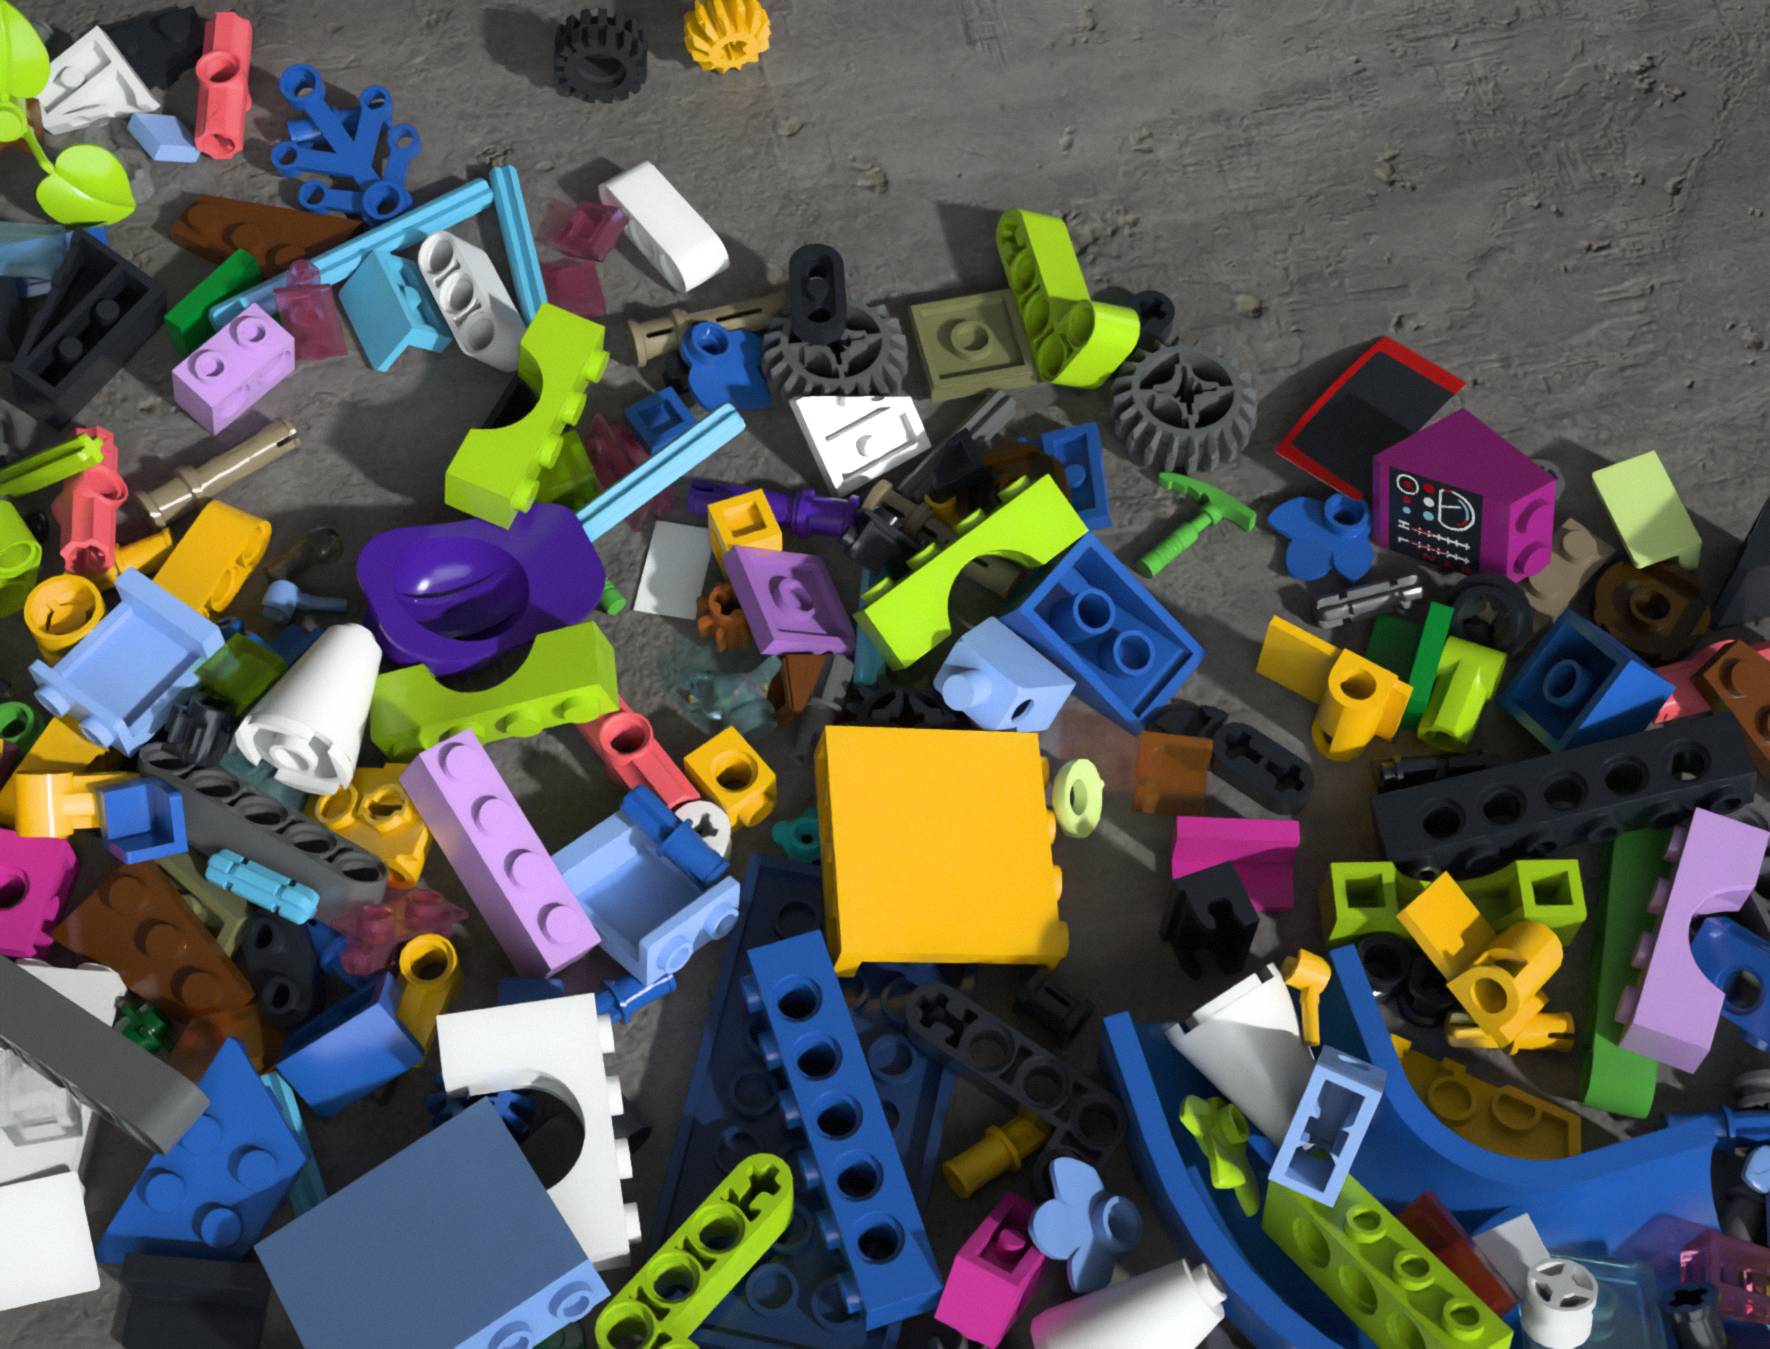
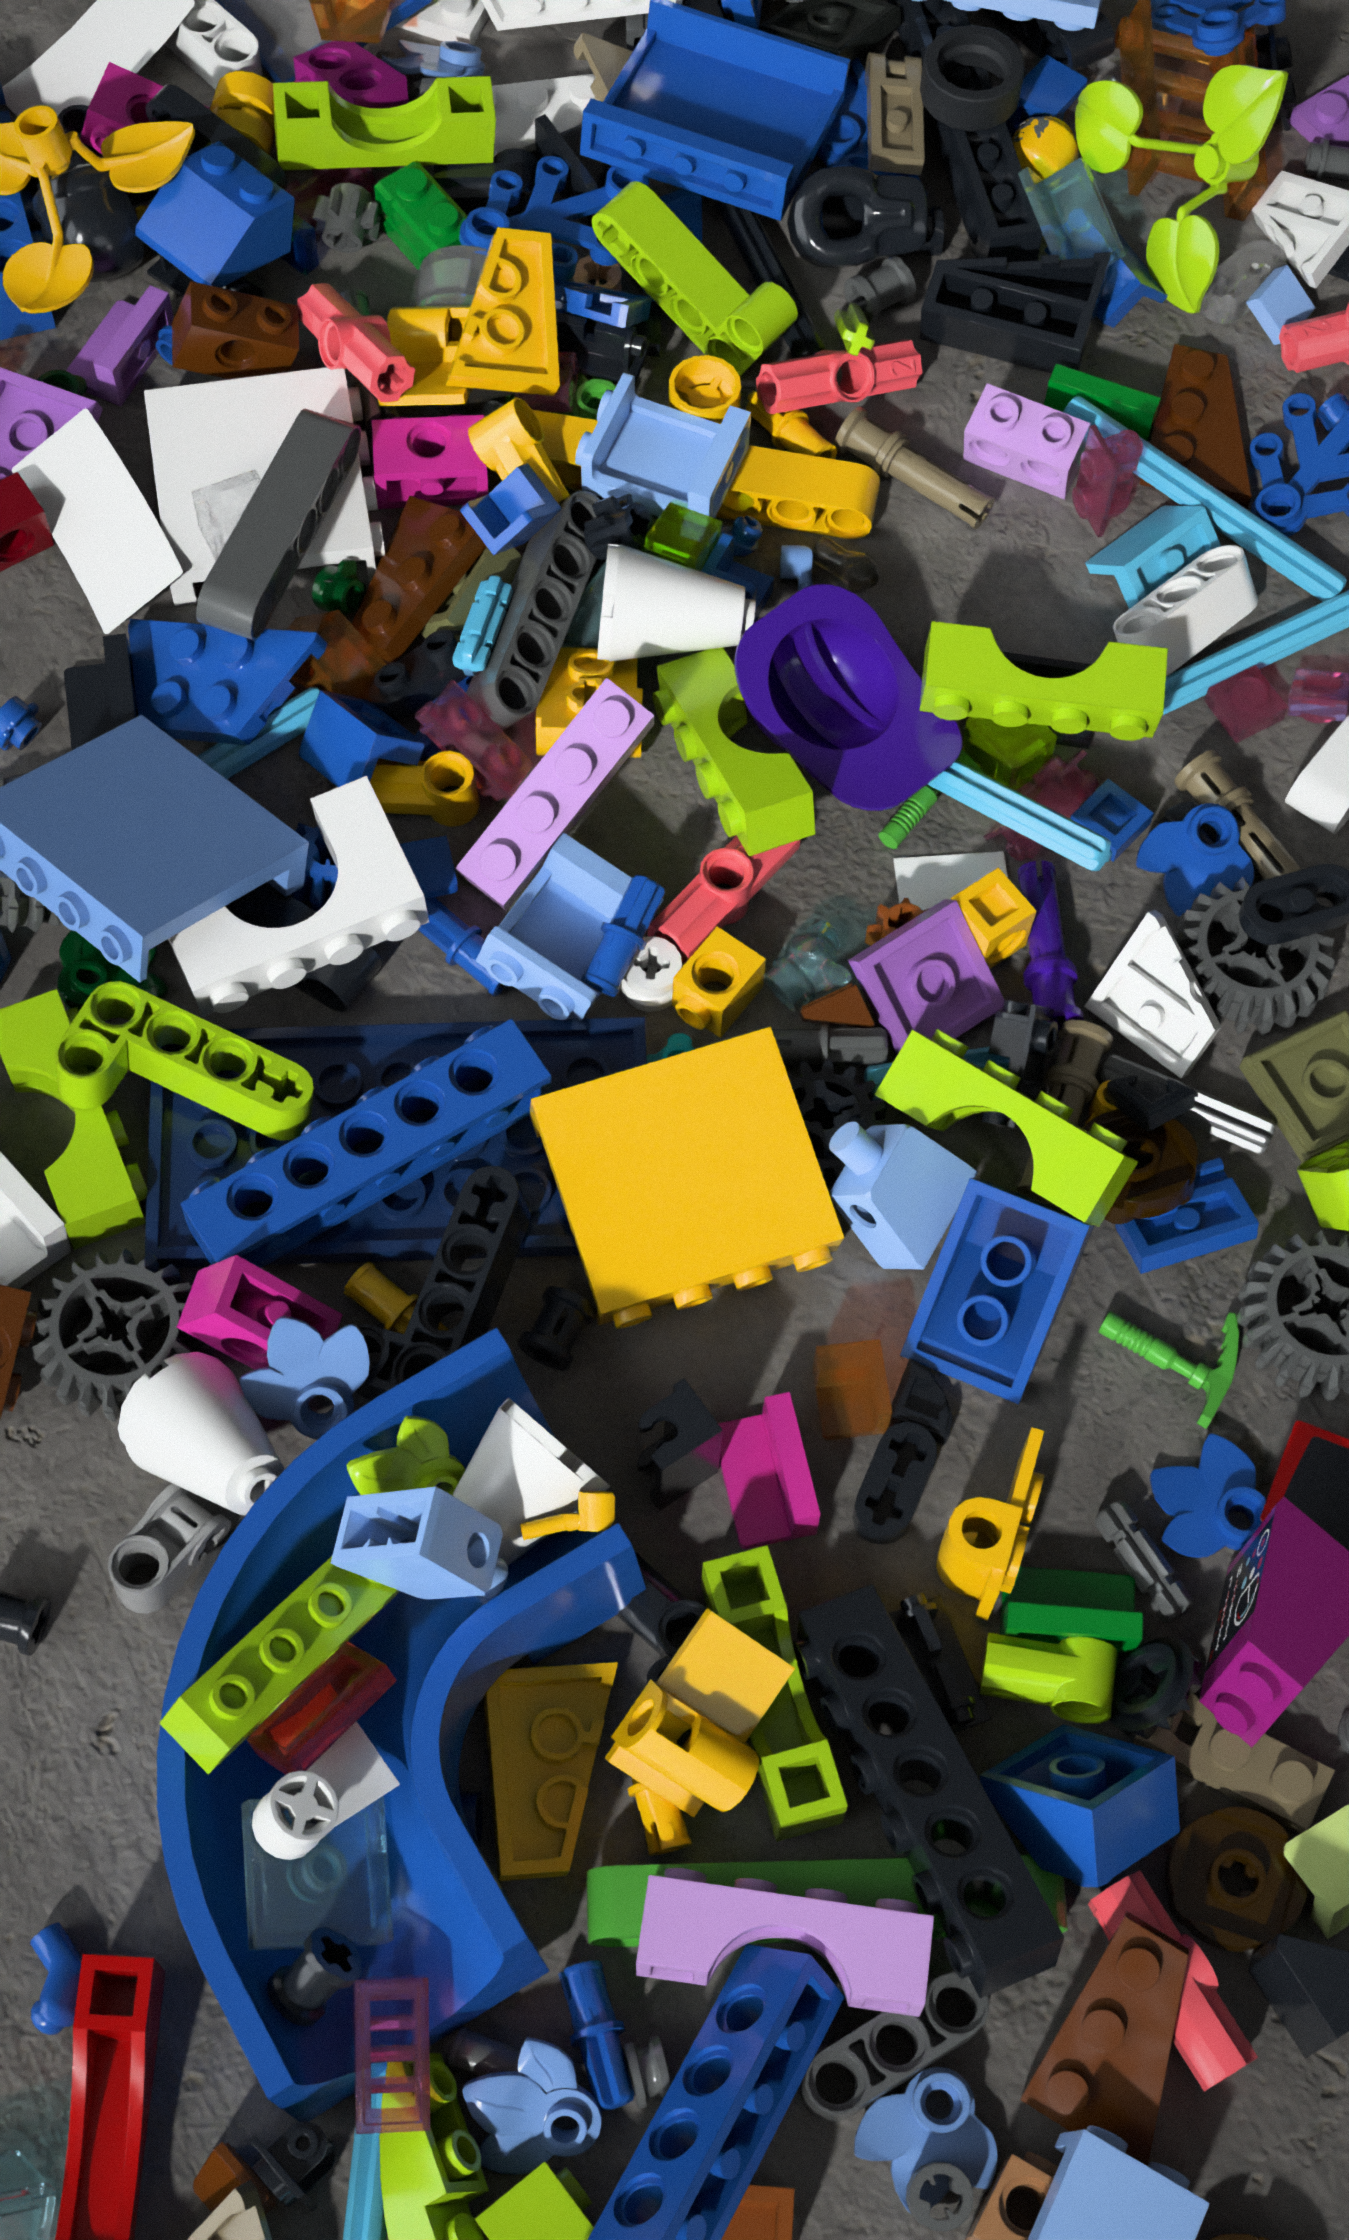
camera: 75 degrees right, 5 degrees up
(1087, 806) = (797, 1321): yellowish green piece -> none

